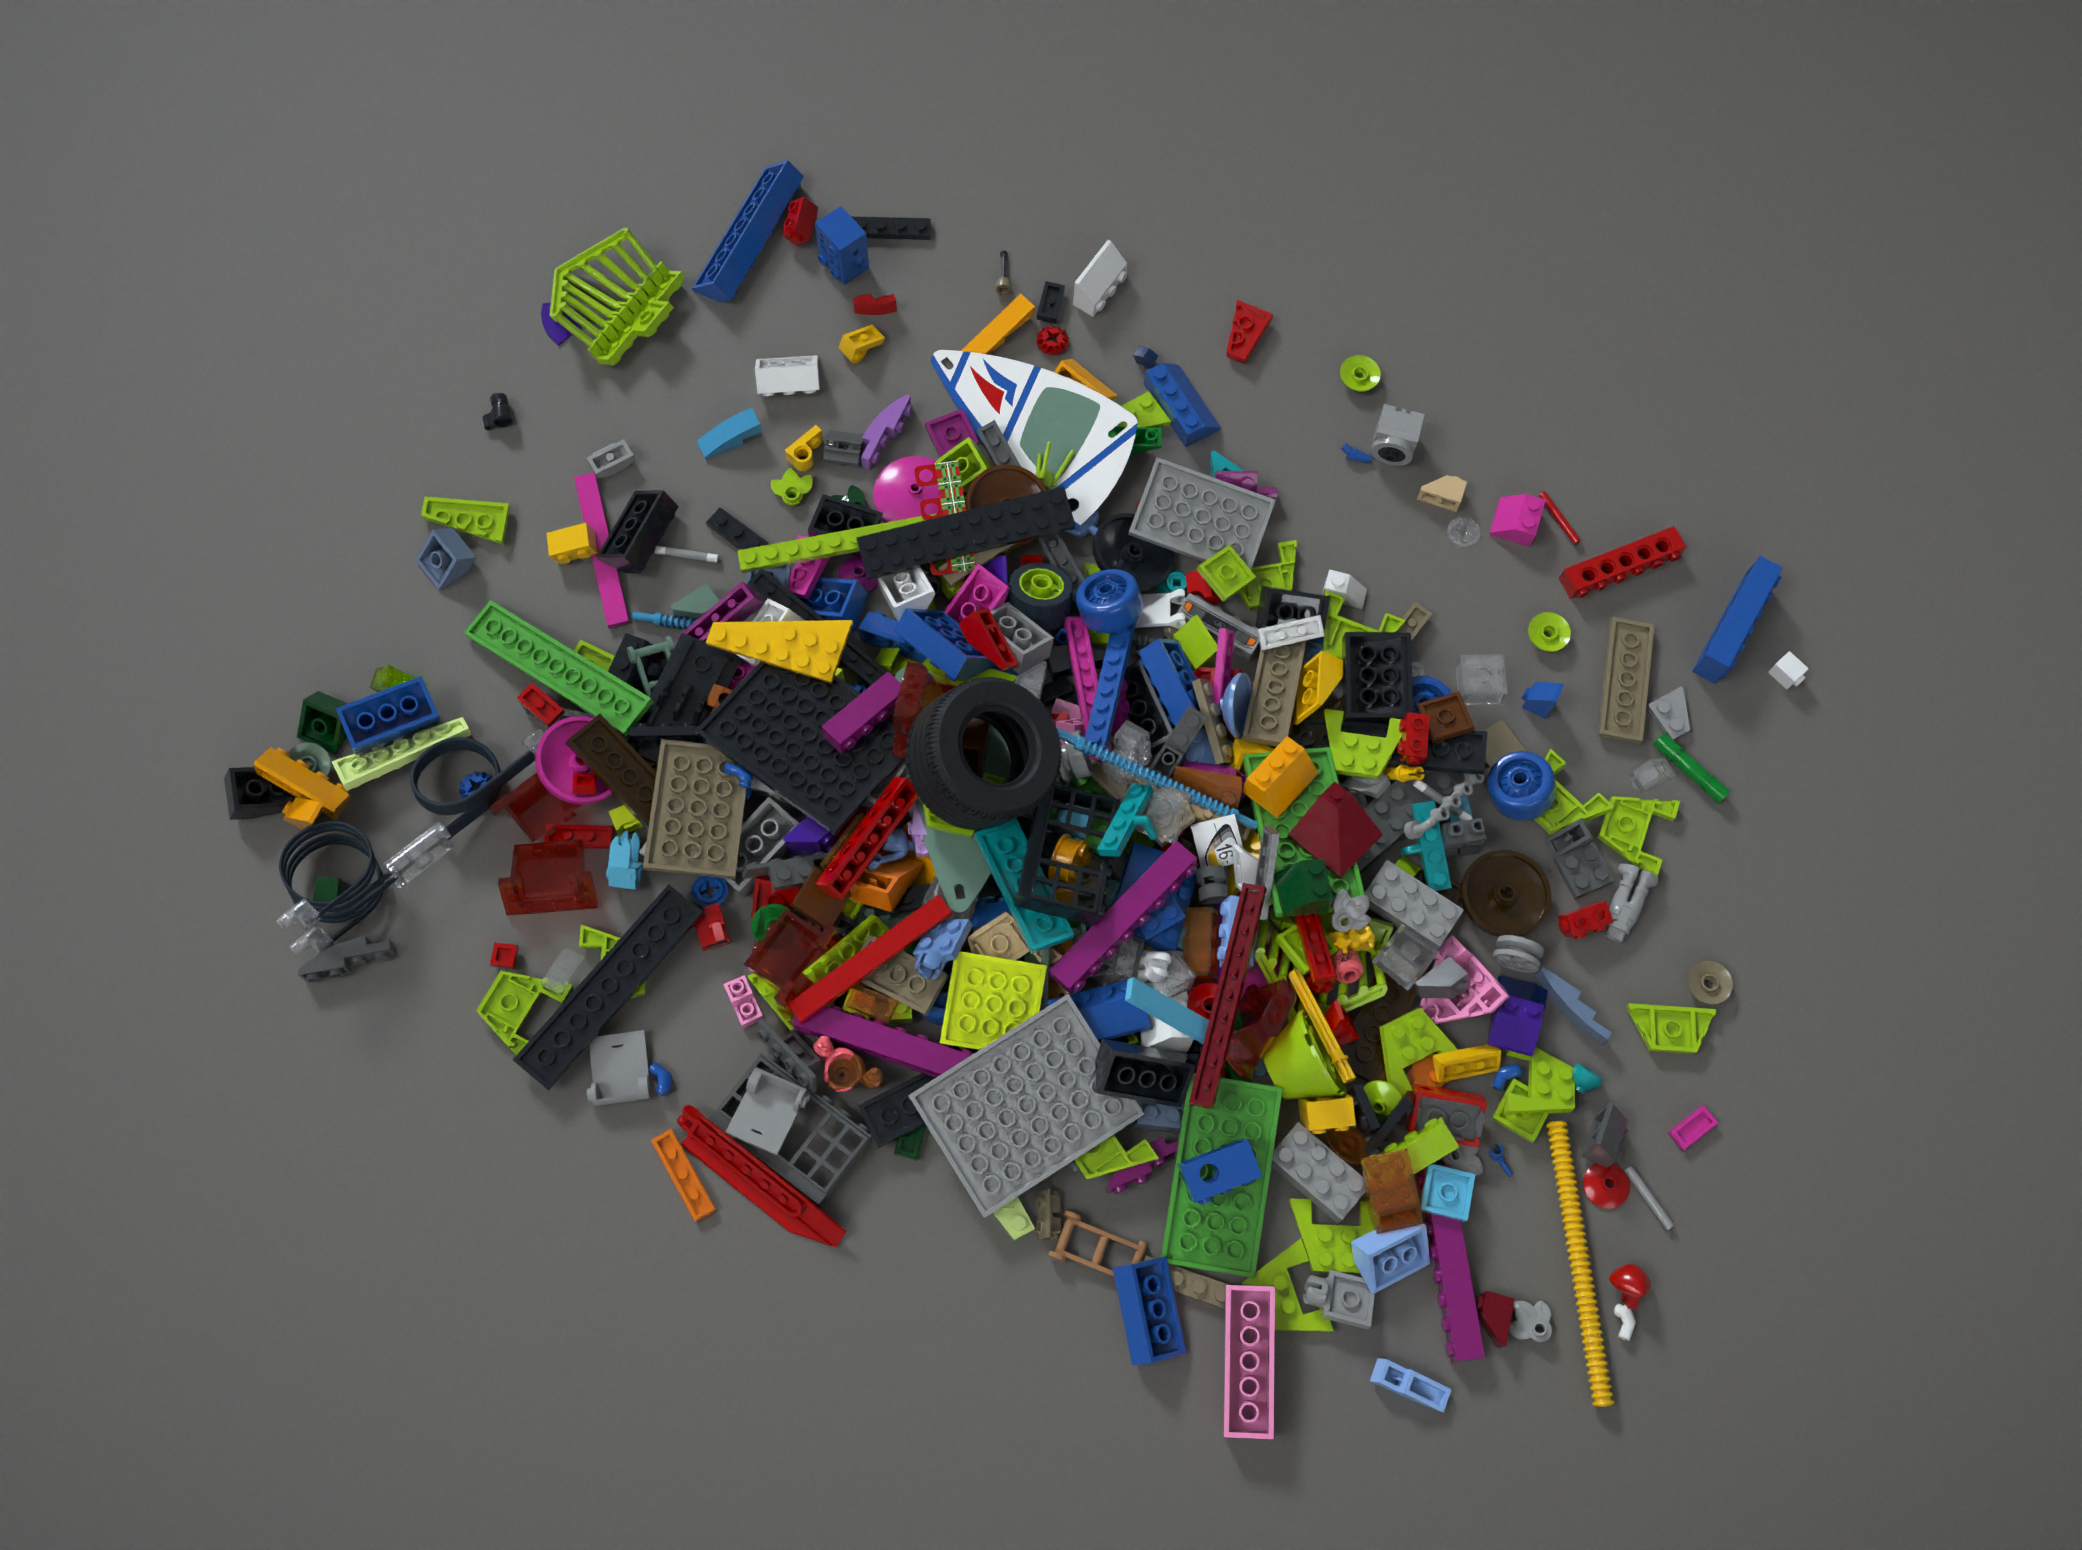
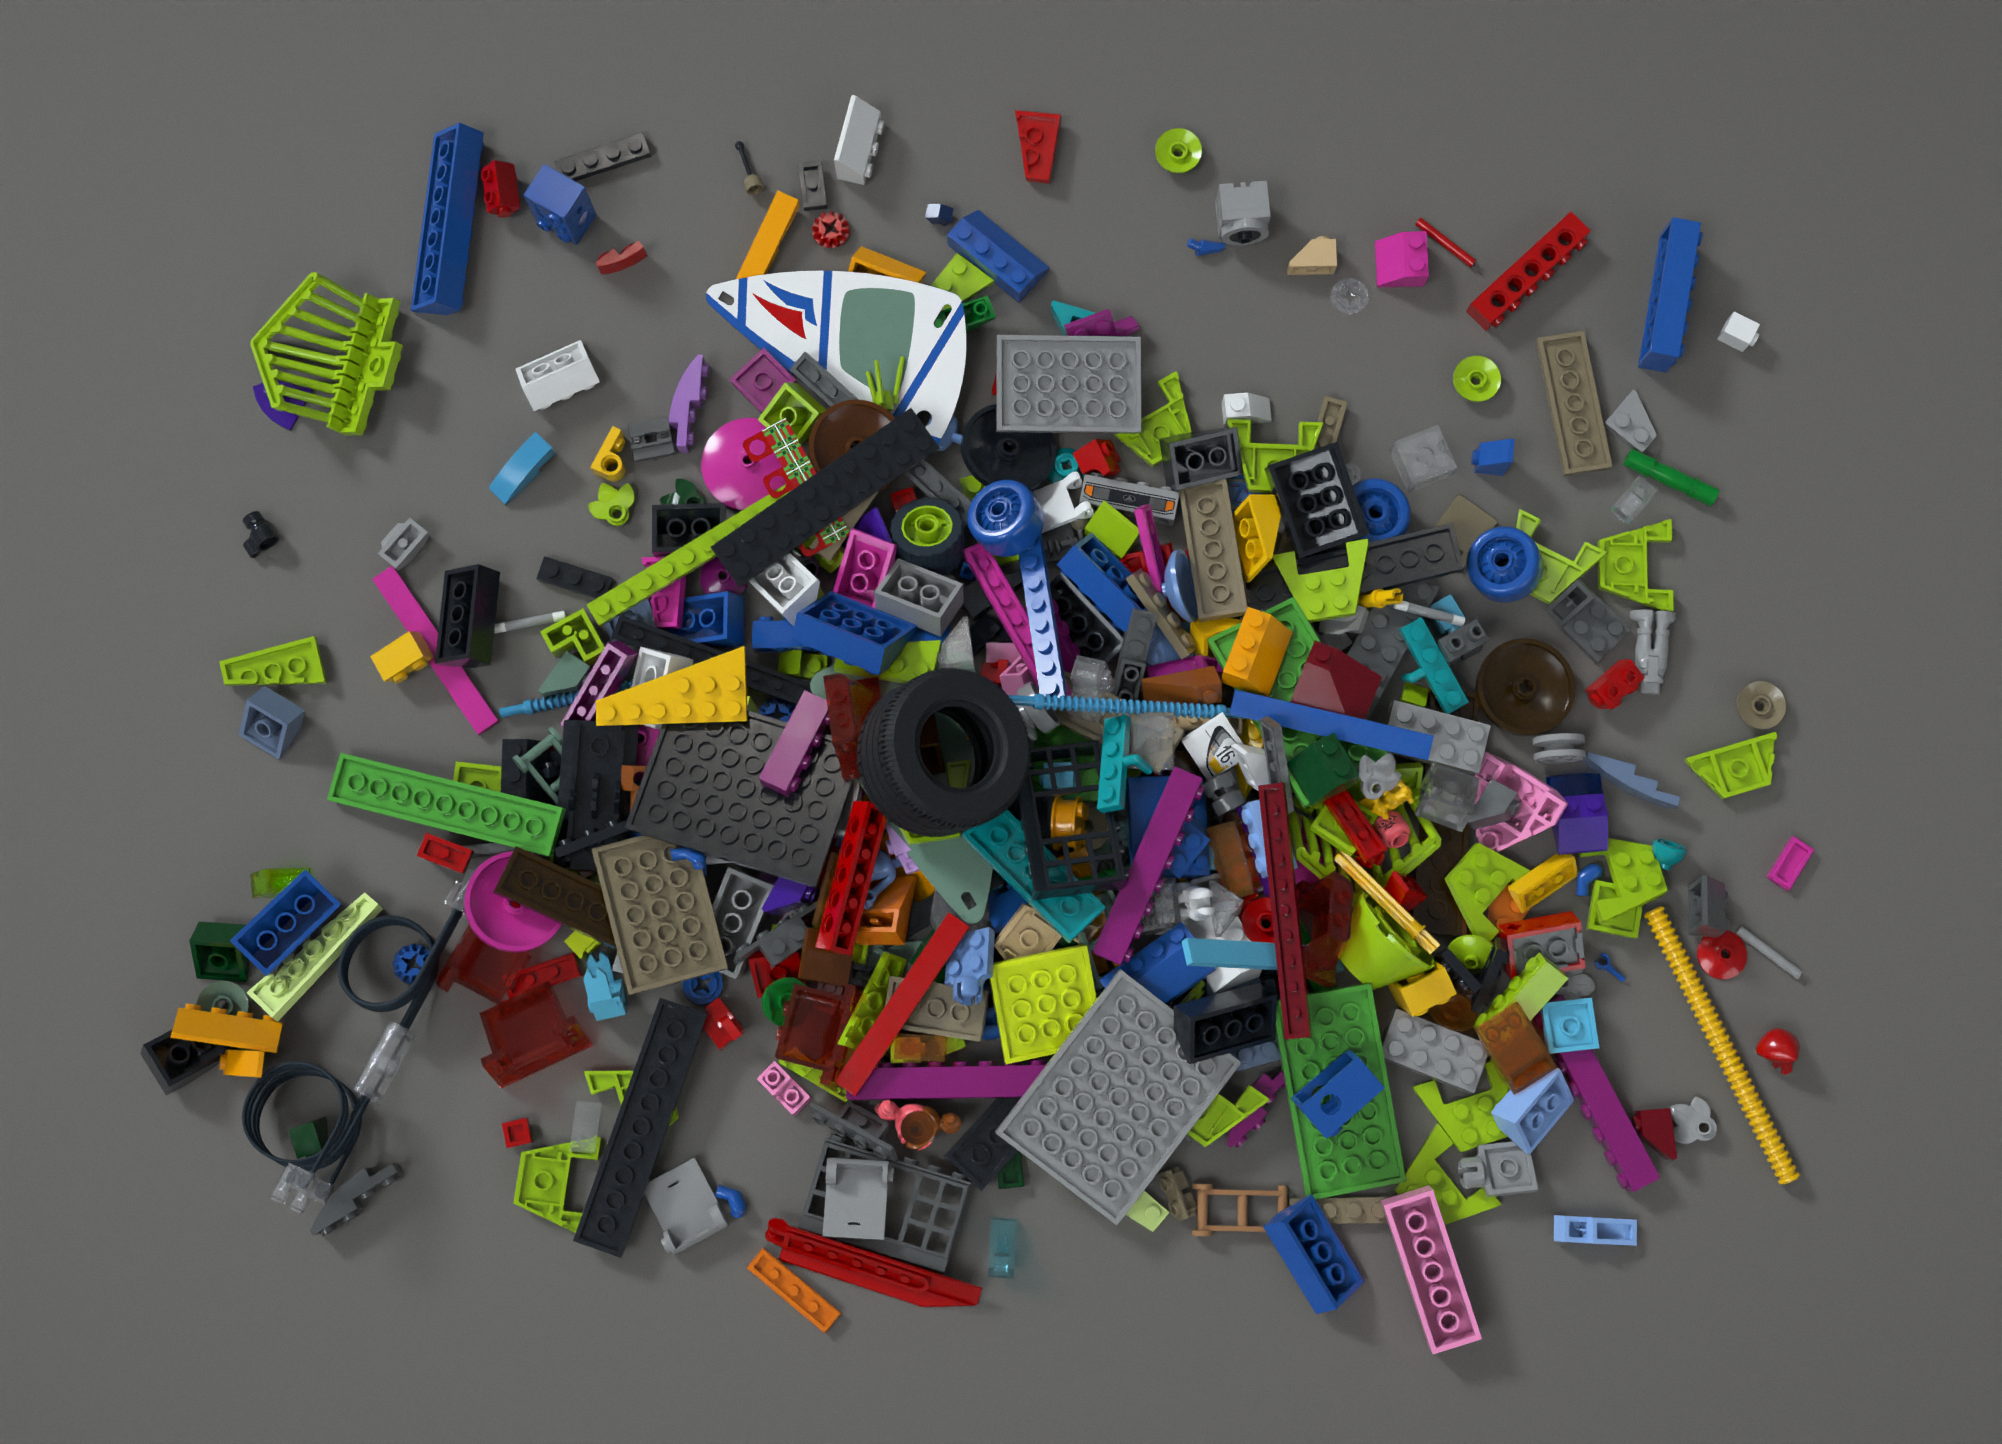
camera: 15 degrees left, 10 degrees up
(584, 783) = (529, 926): red tile -> none
(716, 572) = (575, 632): none -> lime brick
(856, 343) = (621, 309): yellow plate -> none
(876, 1205) = (1002, 1248): none -> clear light blue slope
(986, 637) = (895, 613): red slope -> none
(1226, 573) = (1117, 440): lime plate -> none
(1290, 632) = (1208, 482): white tile -> none
(1335, 860) = (1326, 722): none -> blue tile
(1414, 738) = (1380, 559): red brick -> none
(1415, 829) = (1412, 656): light grey bar -> none
(1447, 717) = (1403, 521): reddish brown tile -> none
(1627, 1319) = (1787, 1086): white arm -> none

